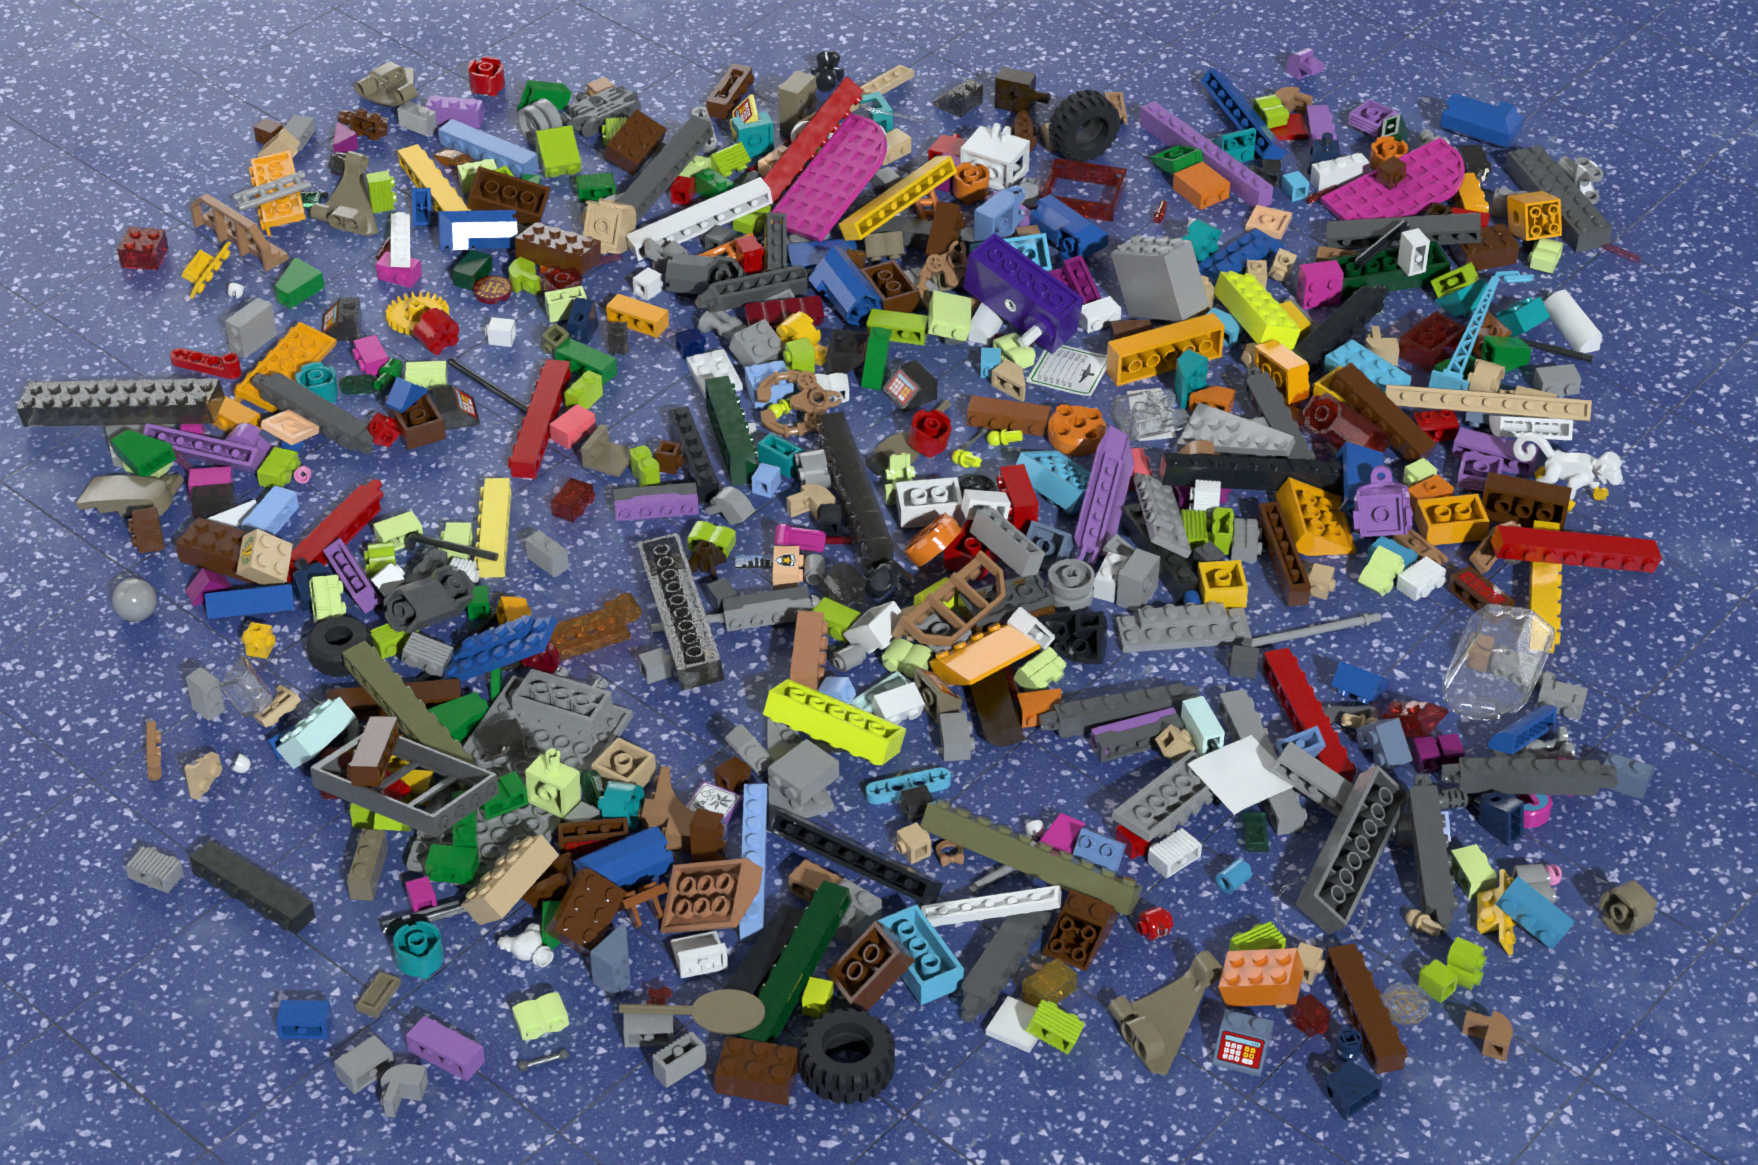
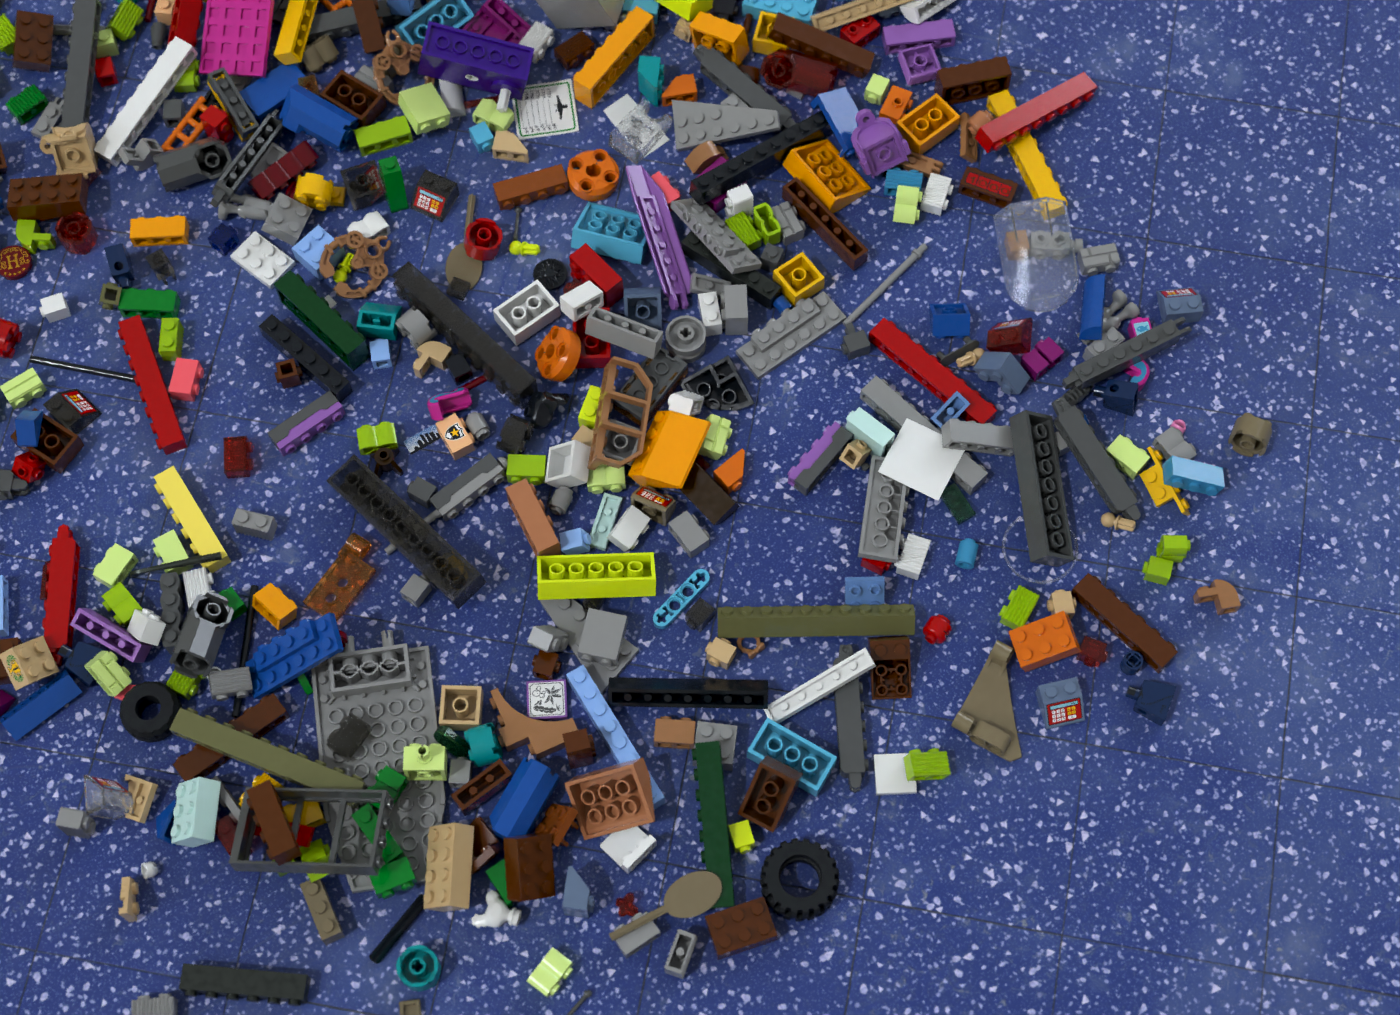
camera: 30 degrees left, 25 degrees up
(153, 751) = (70, 900): medium nougat hinge -> none
(258, 640) = (77, 741): yellow brick -> none
(420, 894) = (383, 915): dark pink brick -> none
(461, 715) = (295, 728): green slope -> none
(560, 302) = (91, 251): yellowish green brick -> none
(604, 455) = (234, 394): dark tan bracket -> none
(644, 466) = (275, 393): lime brick -> none
(648, 283) = (145, 191): white brick -> none
(711, 183) = (132, 55): green brick -> none
(732, 504) = (372, 396): light grey brick -> none
(766, 951) = (682, 821): black brick -> none
(799, 355) = (331, 216): lime brick -> none
(898, 471) = (482, 290): yellowish green tile -> none
(990, 878) = (793, 654): light grey wheel -> none
(996, 438) = (532, 213): neon yellow axle -> none
(1035, 829) = (801, 587): white hinge -> none
(1051, 983) = (898, 729): clear yellow brick -> none
(1063, 833) = (826, 587): dark pink brick -> none
(1081, 716) = (795, 442): dark grey hinge -> none
(1321, 580) = (866, 234): tan brick -> none
(1406, 1003) = (1145, 599): clear tile -> none
(1576, 468) = (996, 32): white animal -> none

